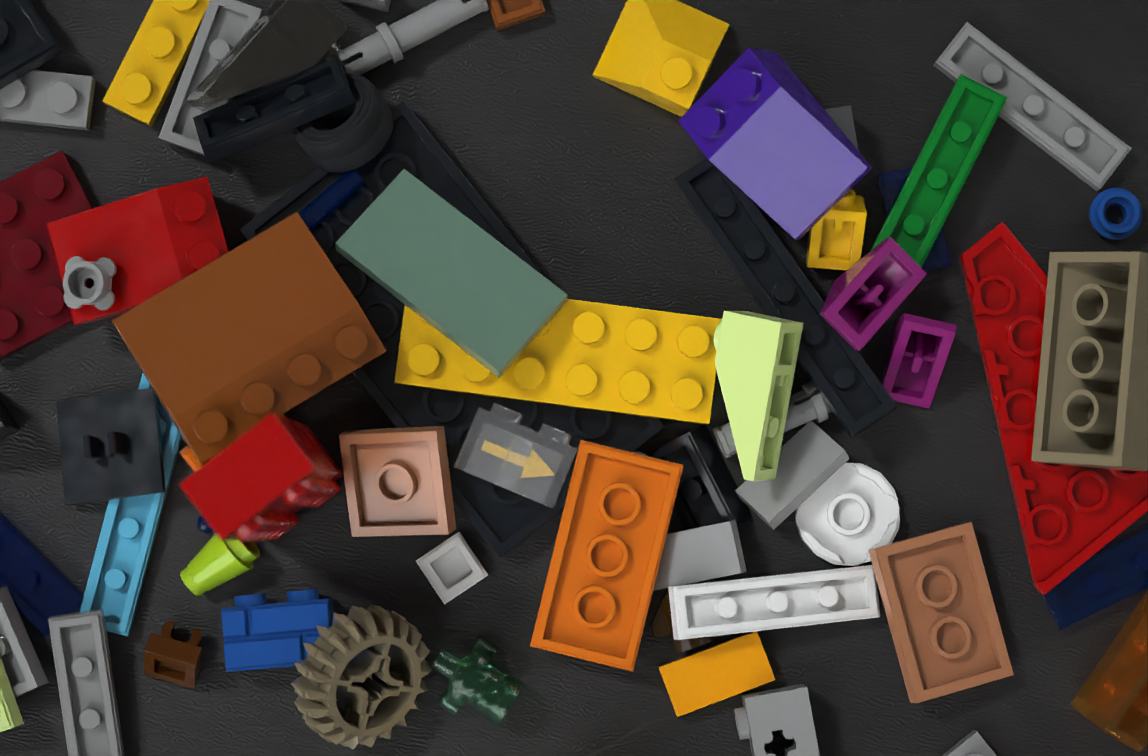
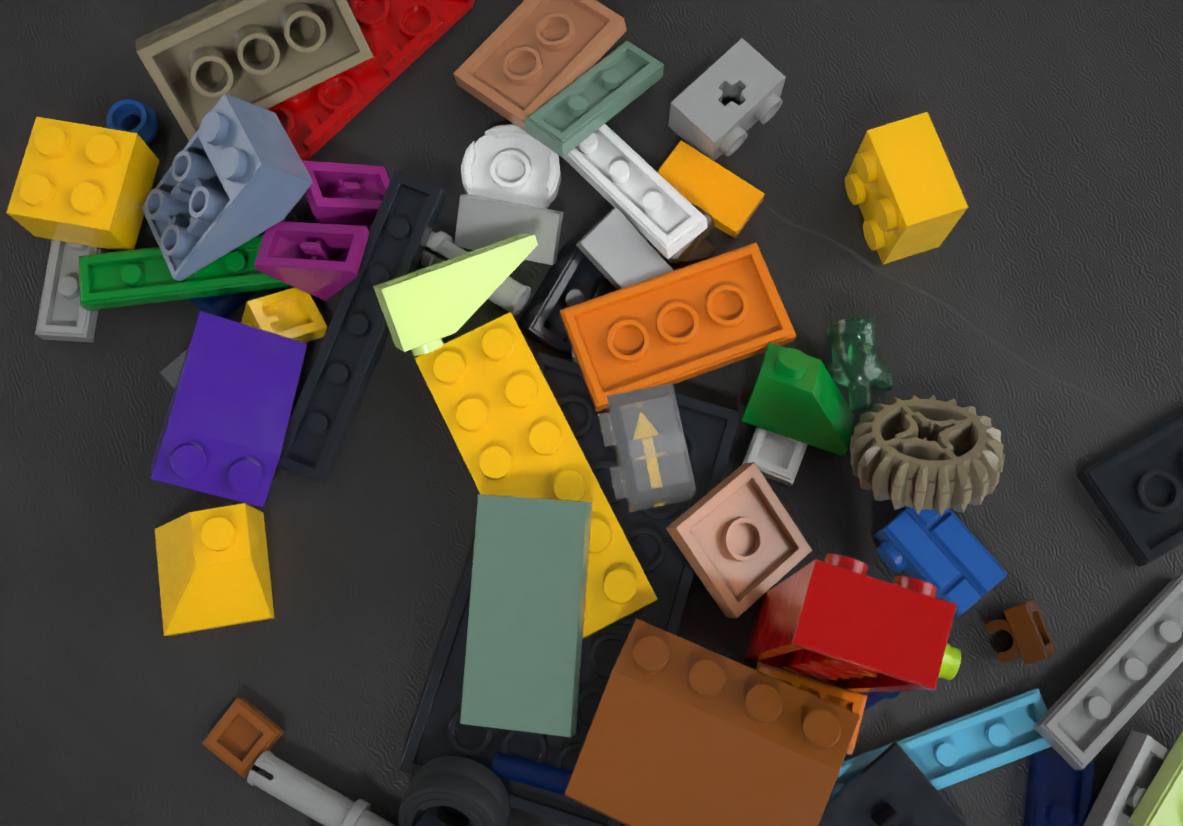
camera: 120 degrees left, 10 degrees down
(474, 611) = (799, 401): none -> green slope
(862, 629) = (594, 98): none -> sand green tile
(977, 254) = (225, 186): none -> sand blue slope
(1066, 139) = (83, 184): none -> yellow brick

